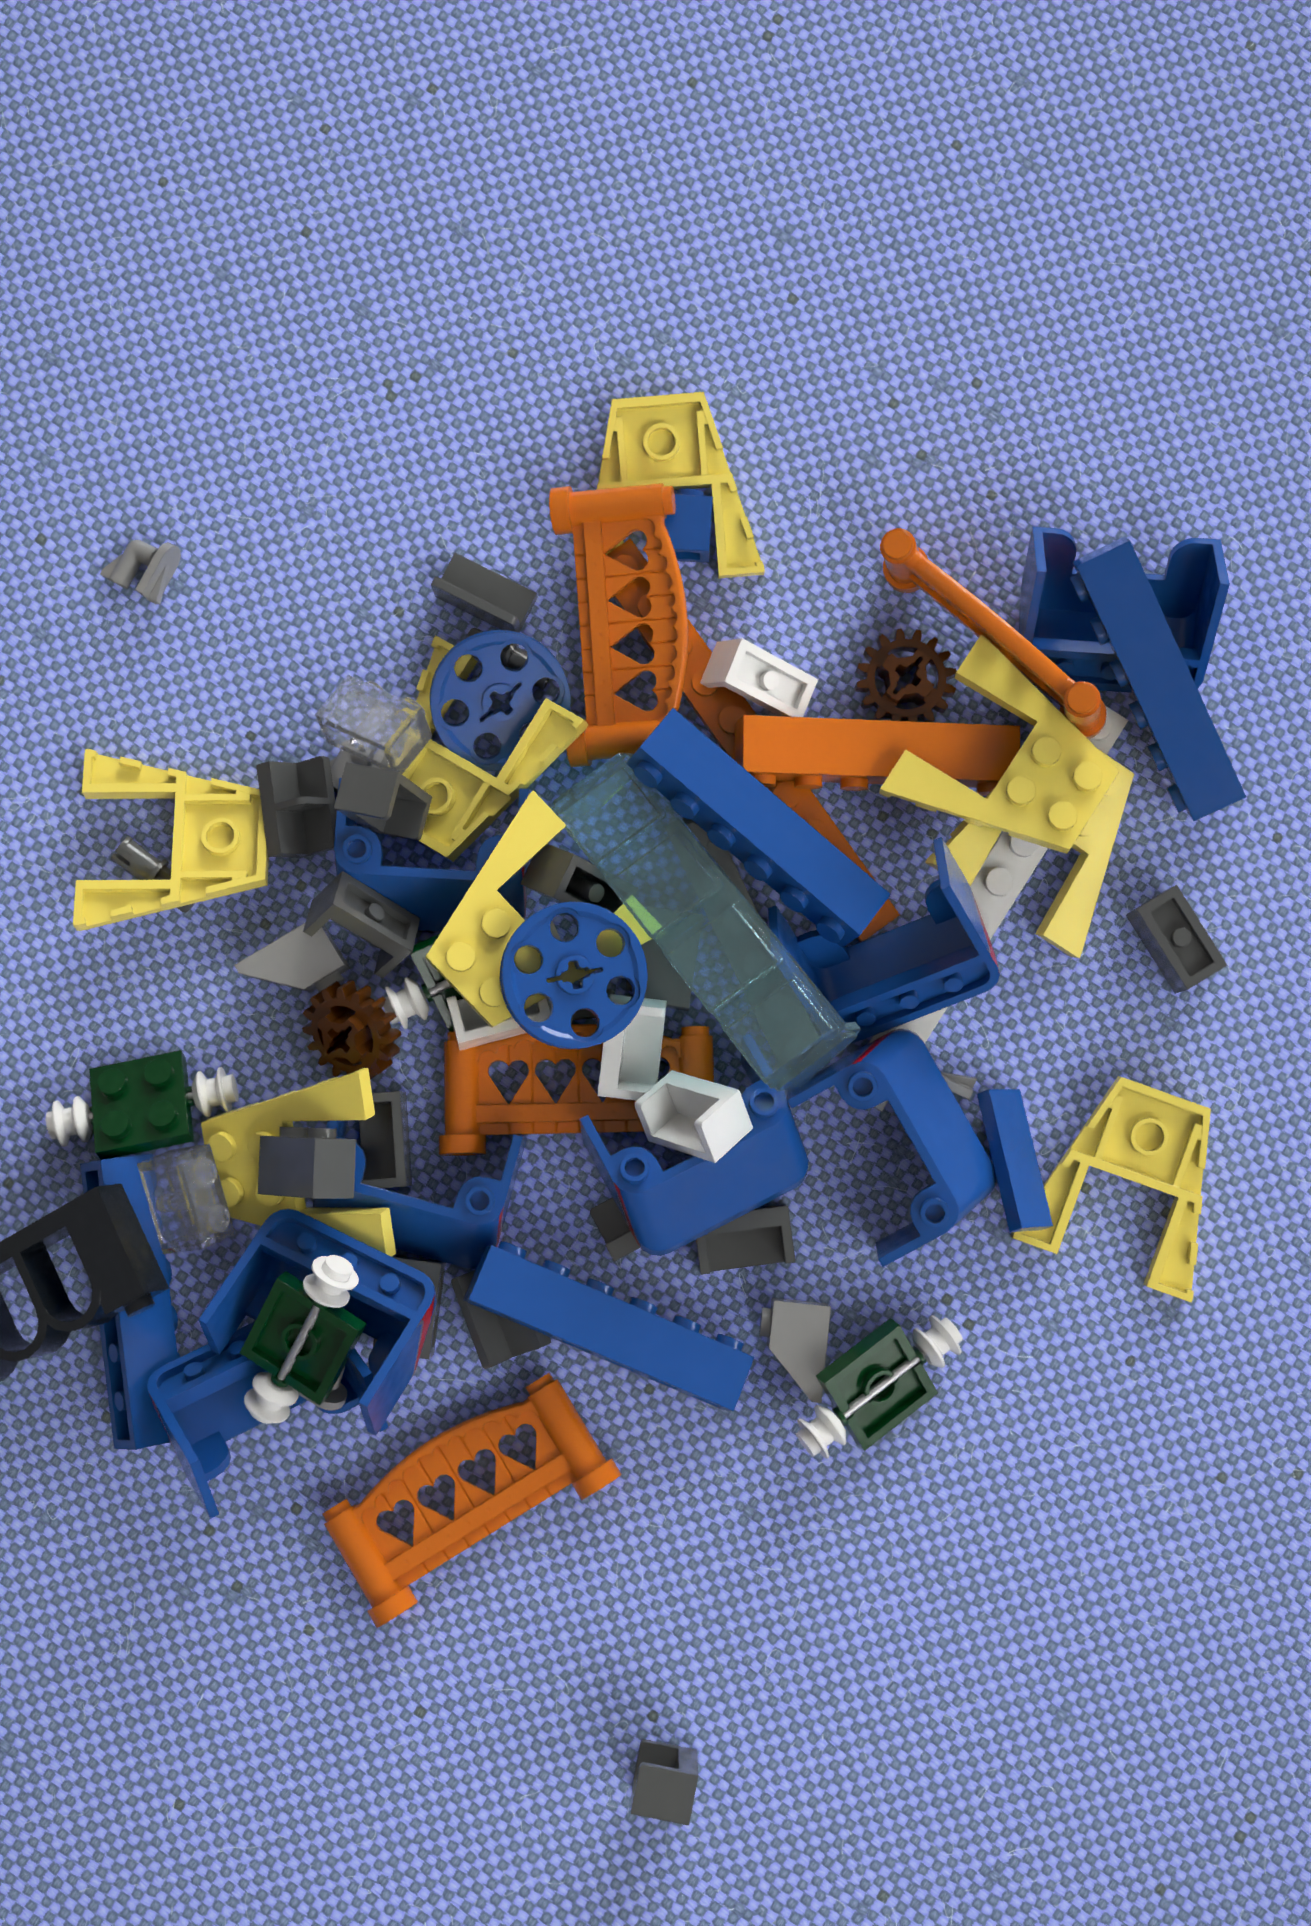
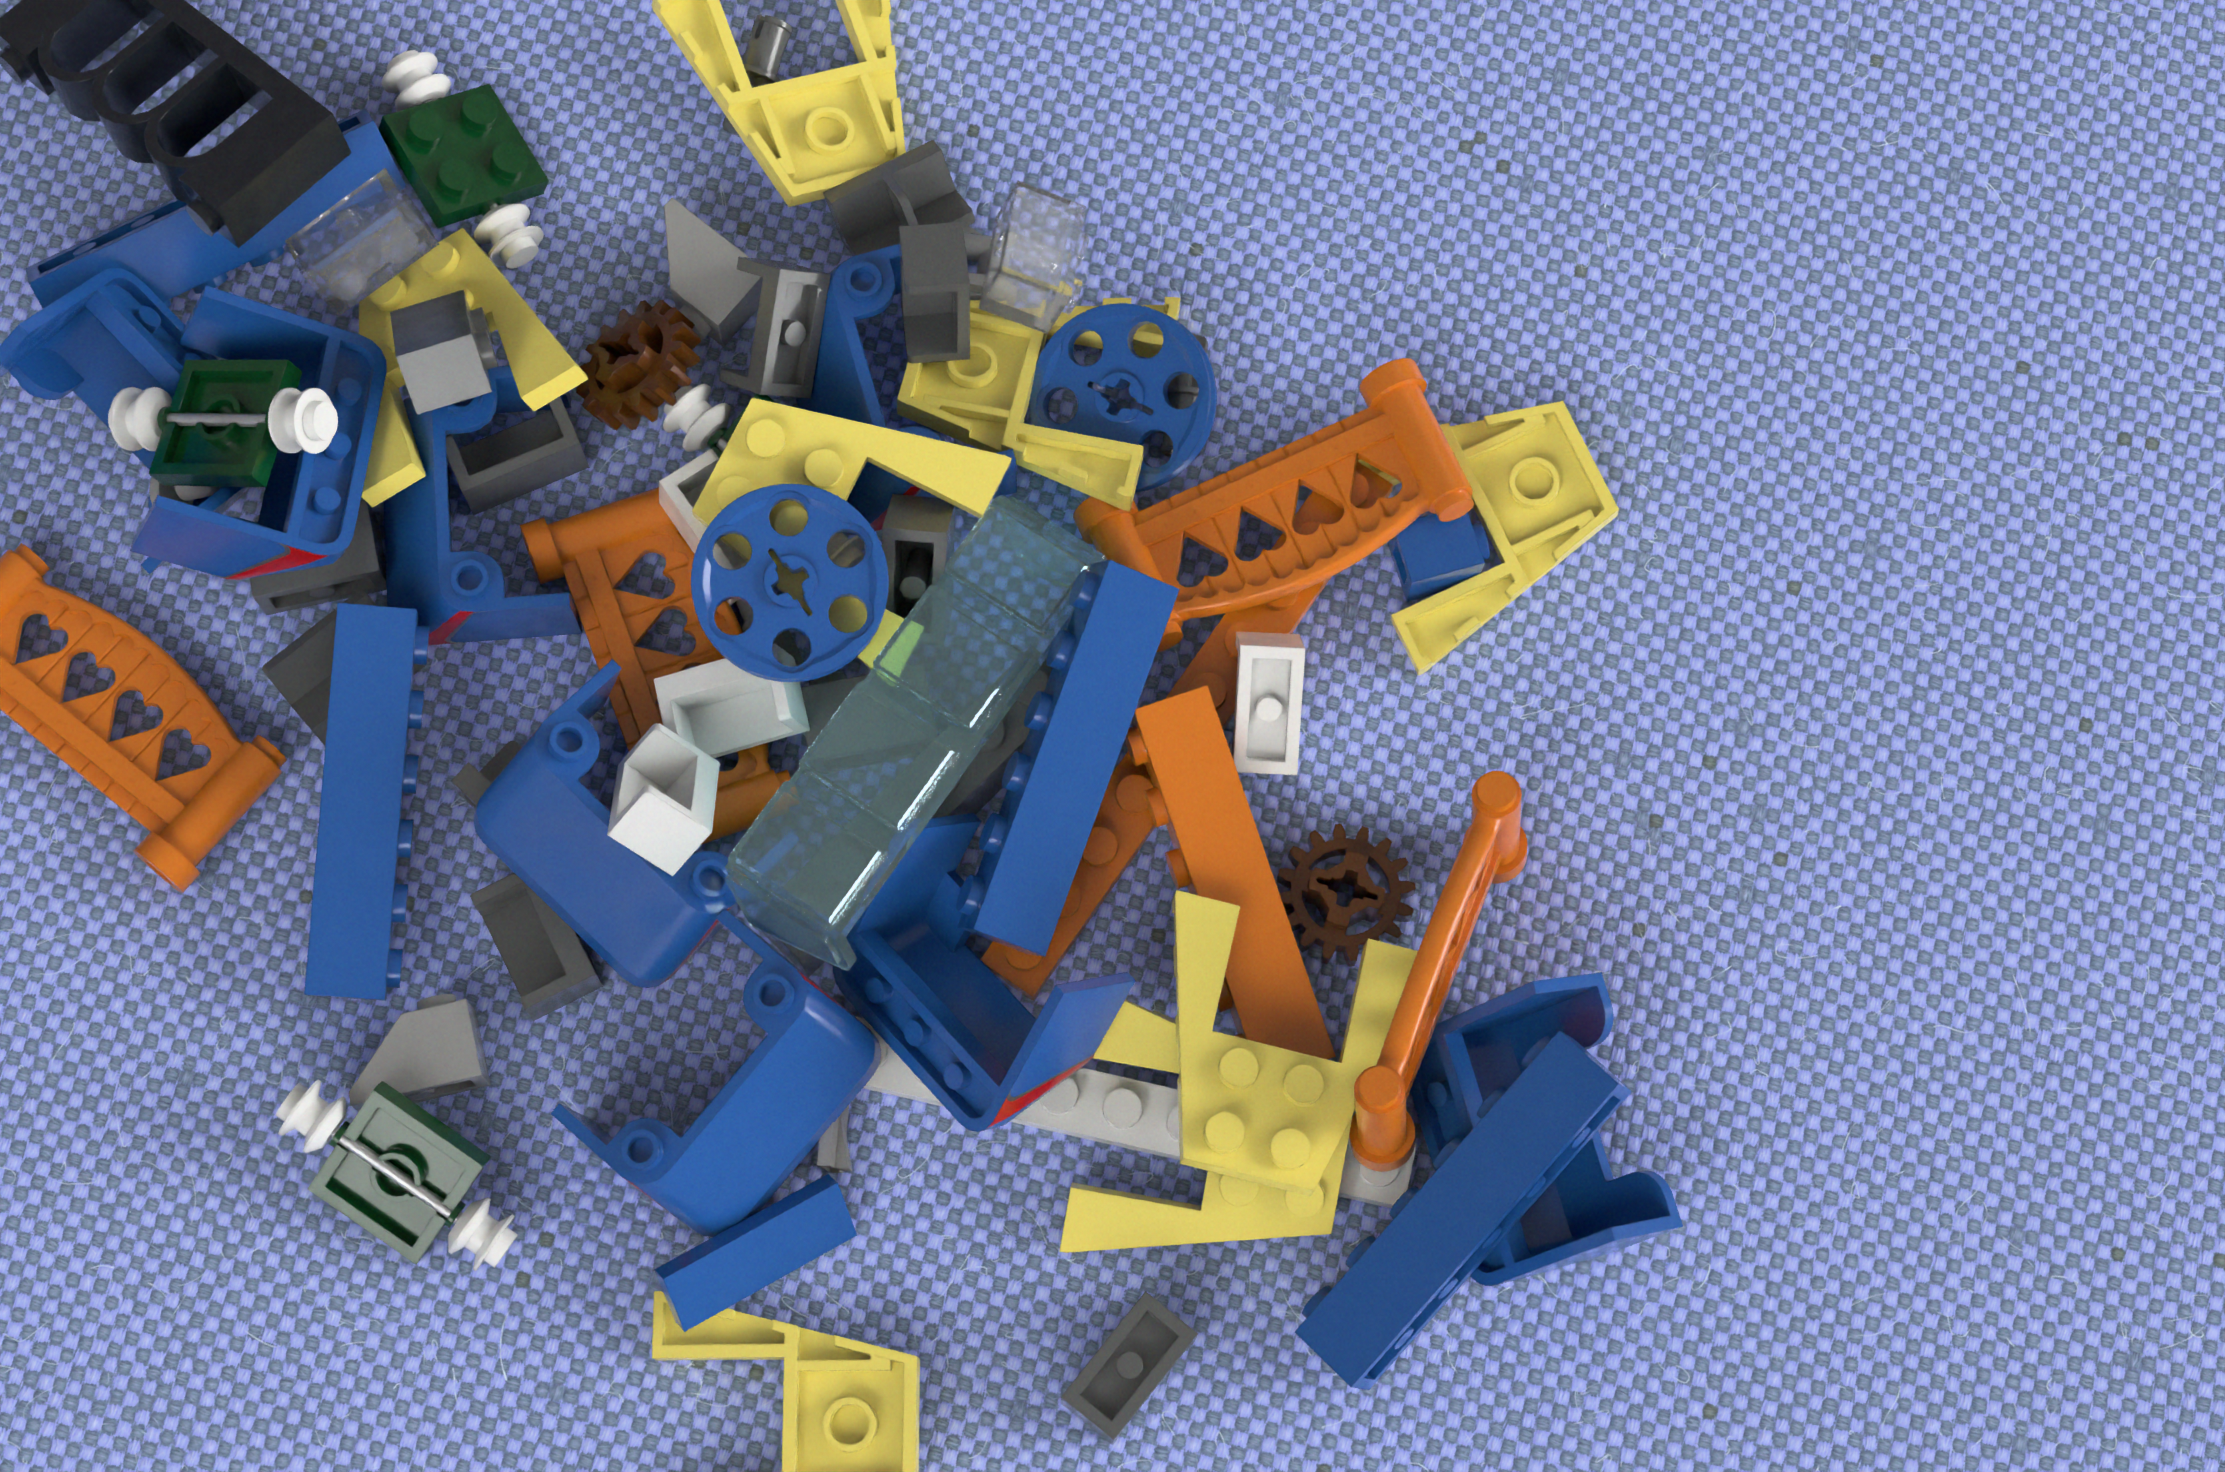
camera: 65 degrees right, 10 degrees down
(484, 594) = (1256, 341): dark grey panel -> none

